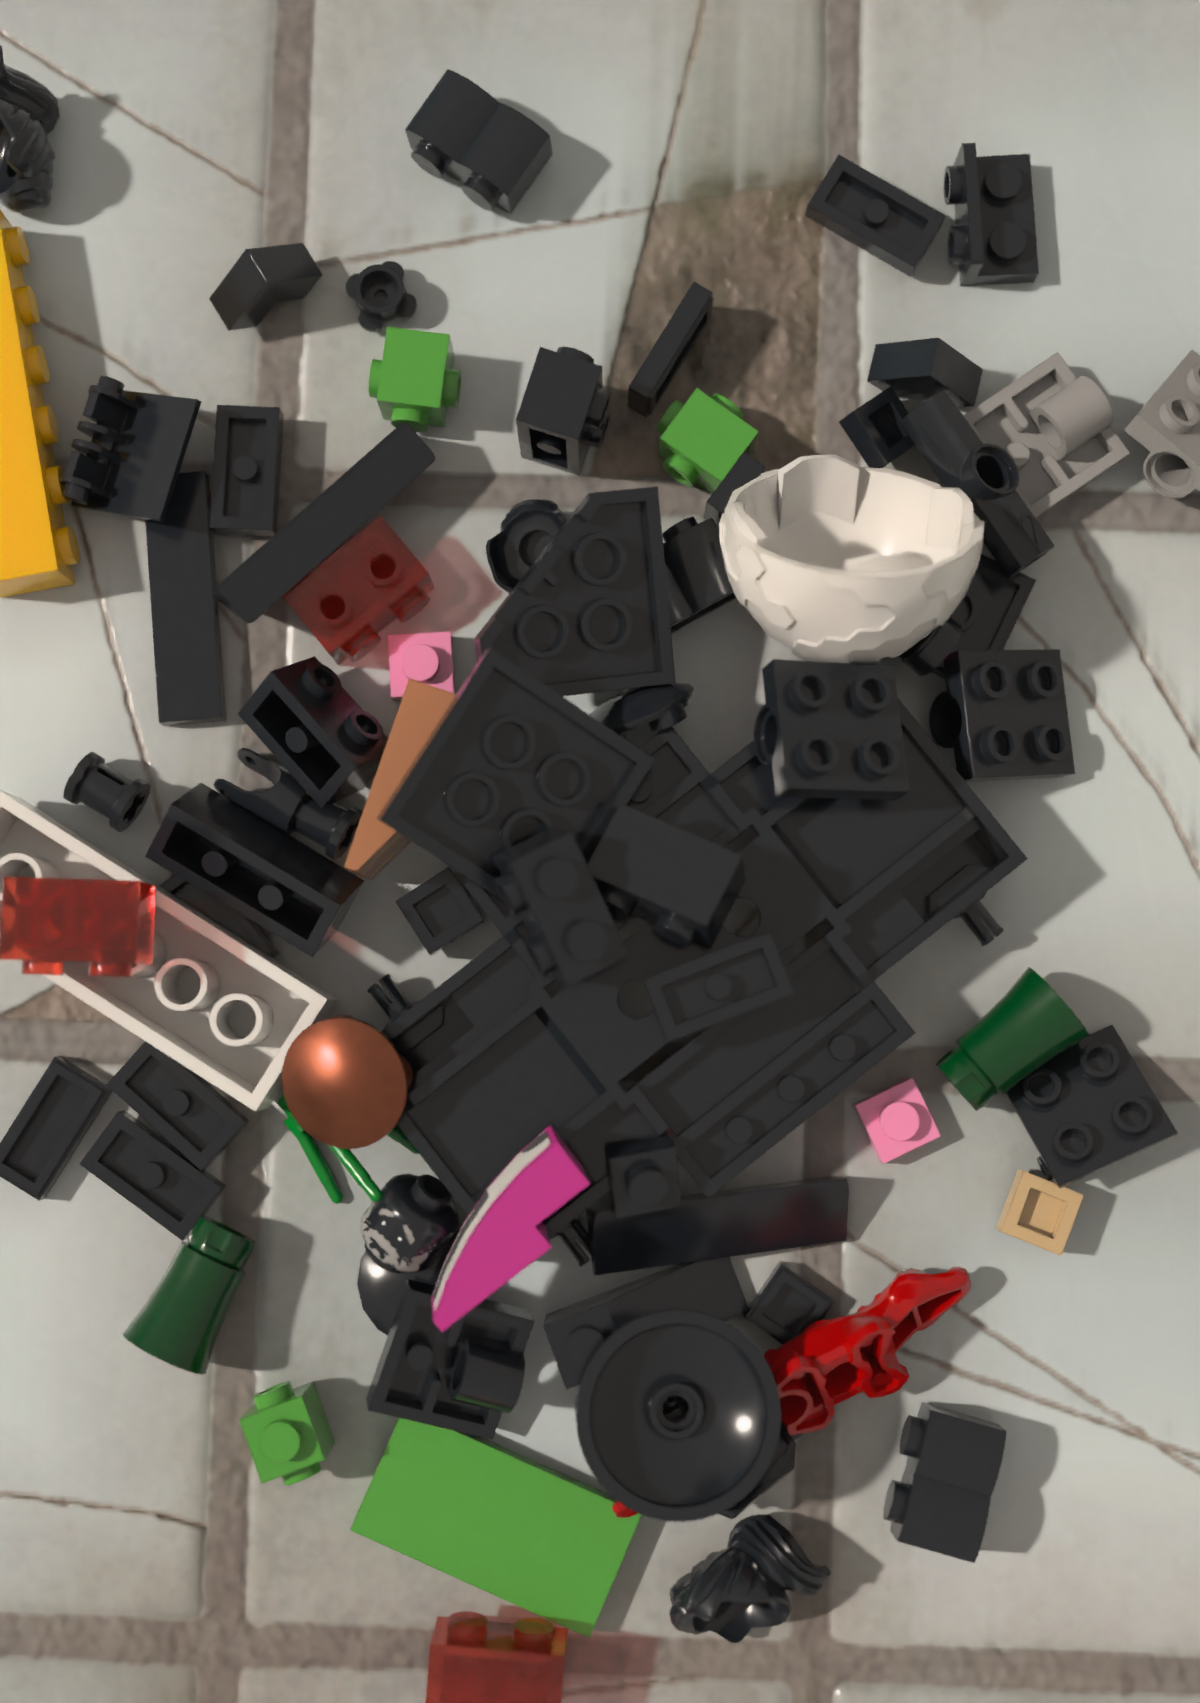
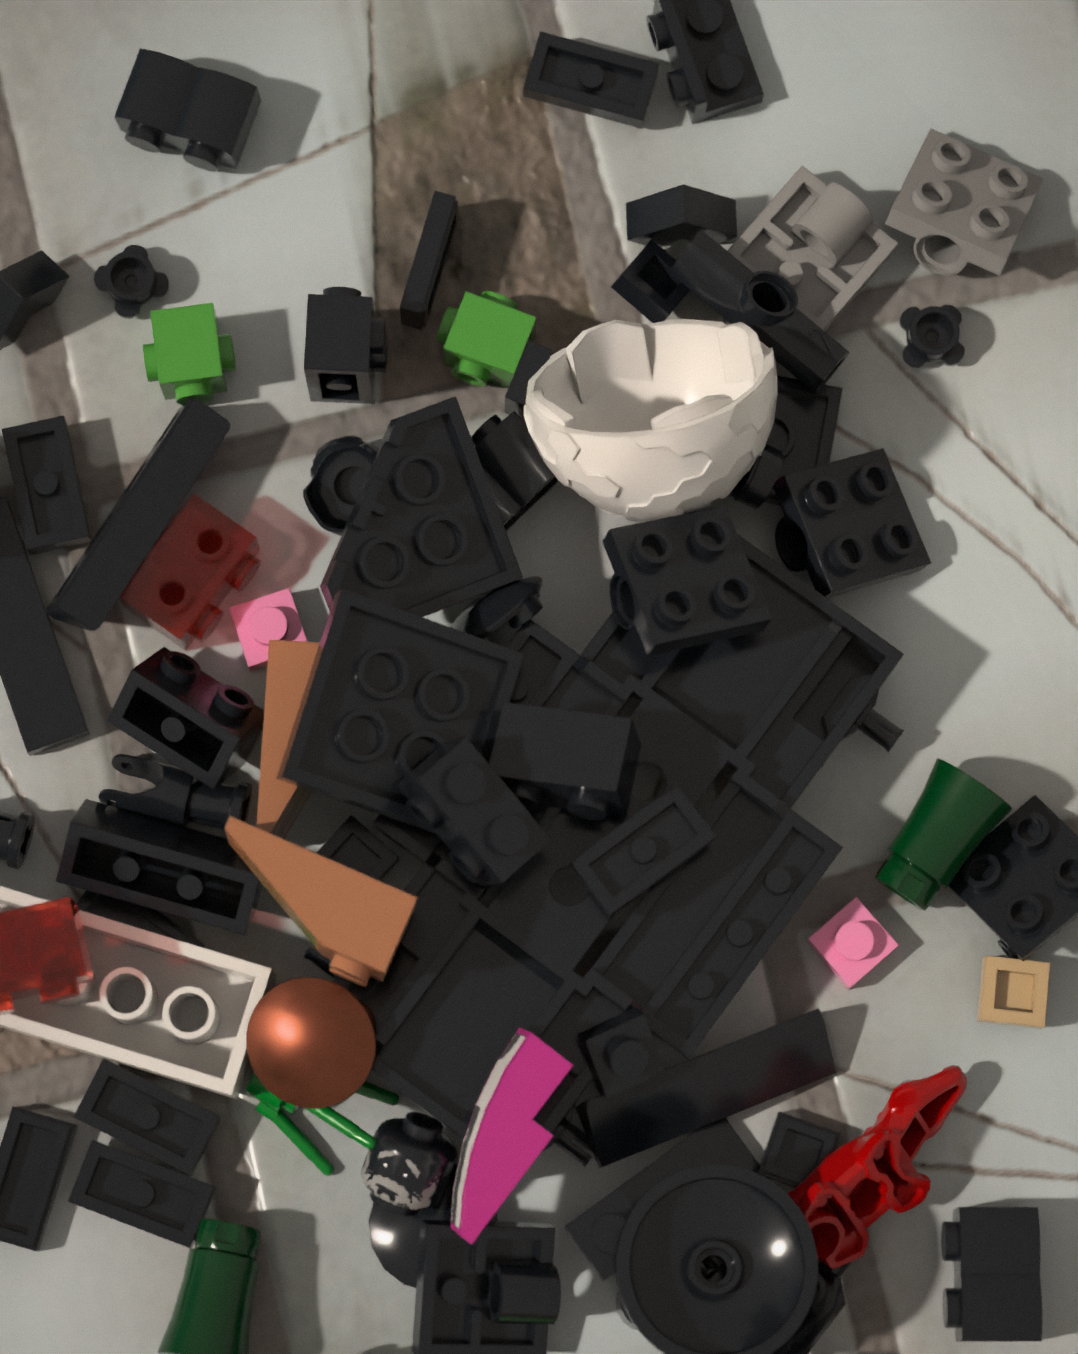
camera: 20 degrees left, 5 degrees down
(396, 964) = (337, 908): none -> nougat slope
(1152, 542) = (944, 323): none -> black plate

